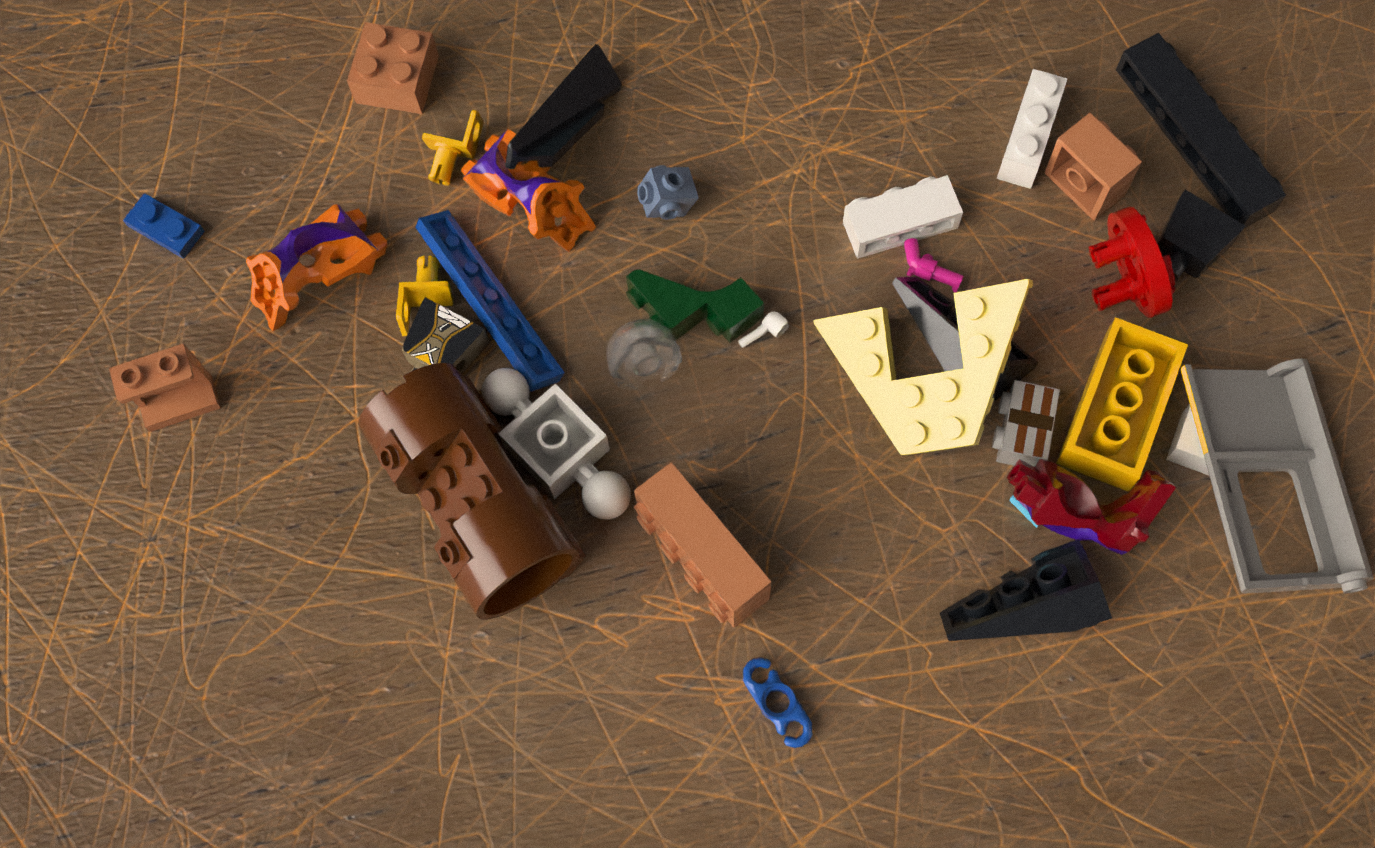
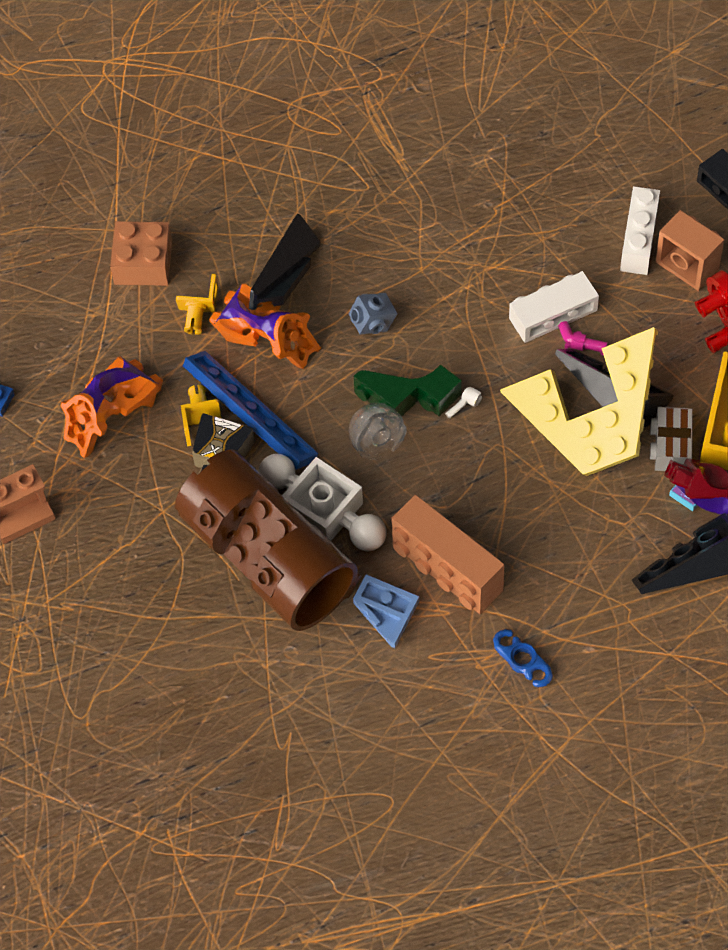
camera: 10 degrees left, 10 degrees down
(611, 602) = (385, 607): none -> medium blue wing

